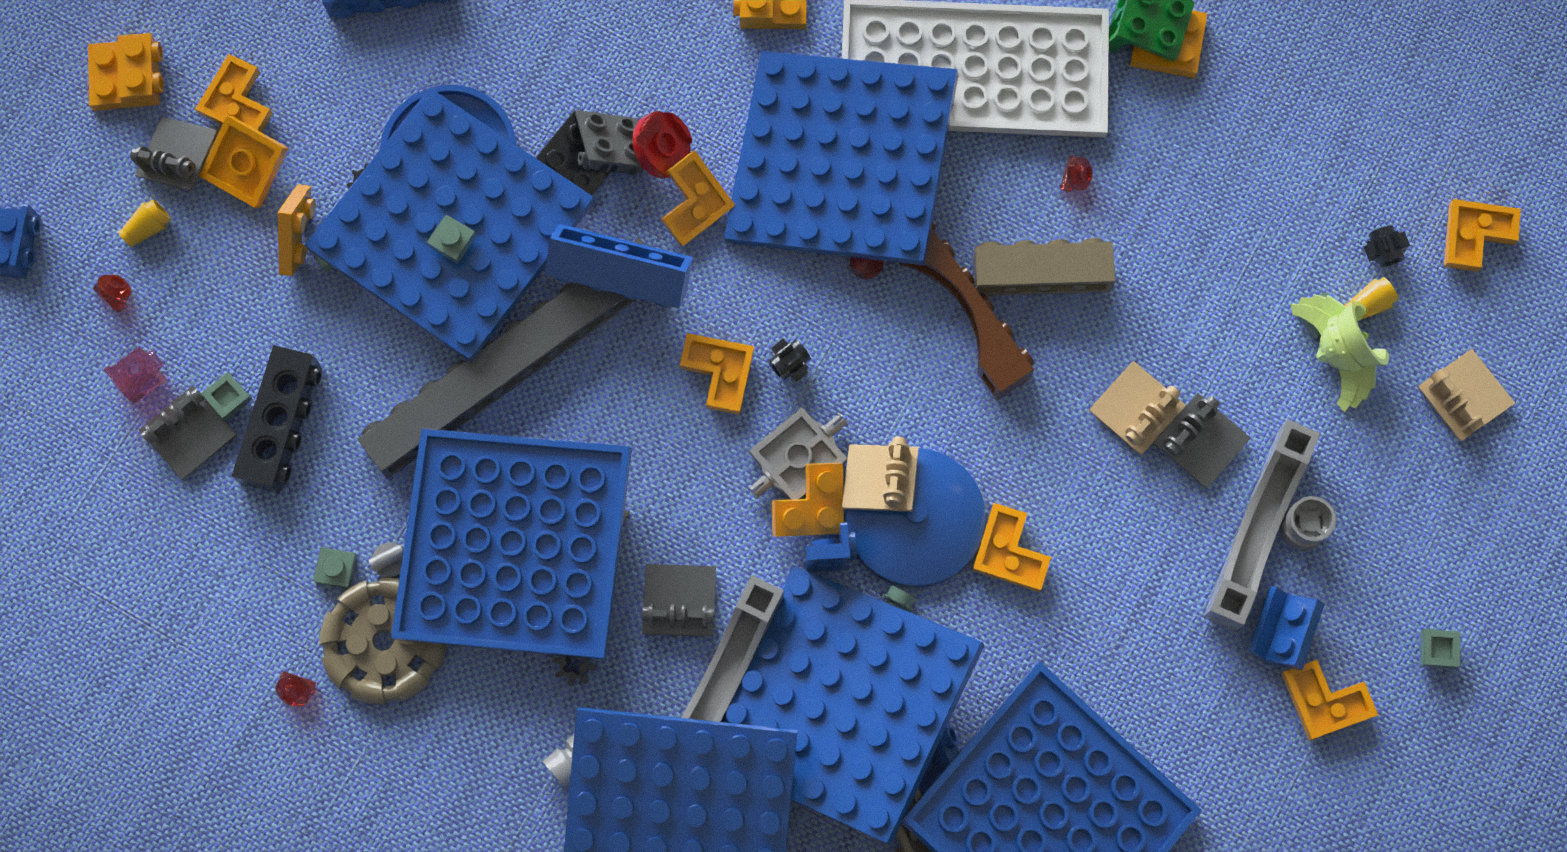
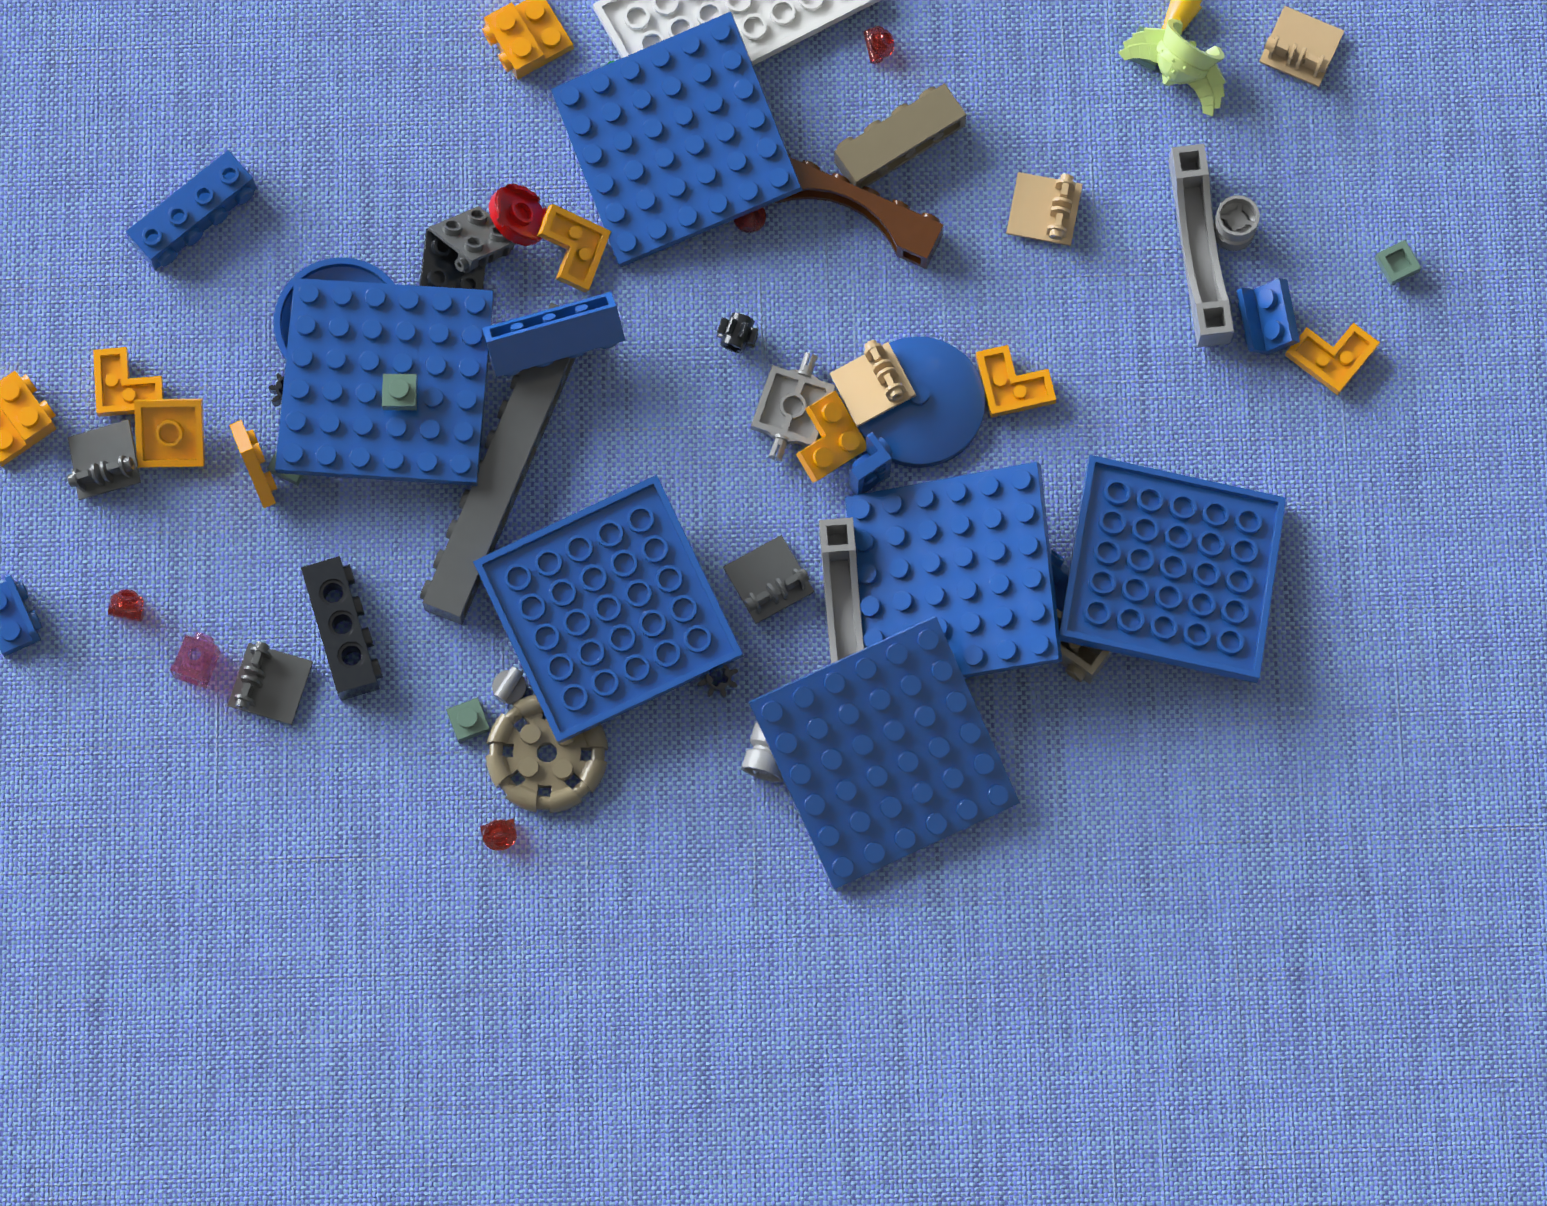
camera: 30 degrees left, 0 degrees up
(144, 223) = (116, 533): yellow cone -> none
(226, 396) = (285, 634): sand green plate -> none
(728, 365) = (684, 365): light orange plate -> none
(899, 599) = (946, 471): sand green plate -> none
(1202, 439) = (1112, 204): dark grey hinge -> none

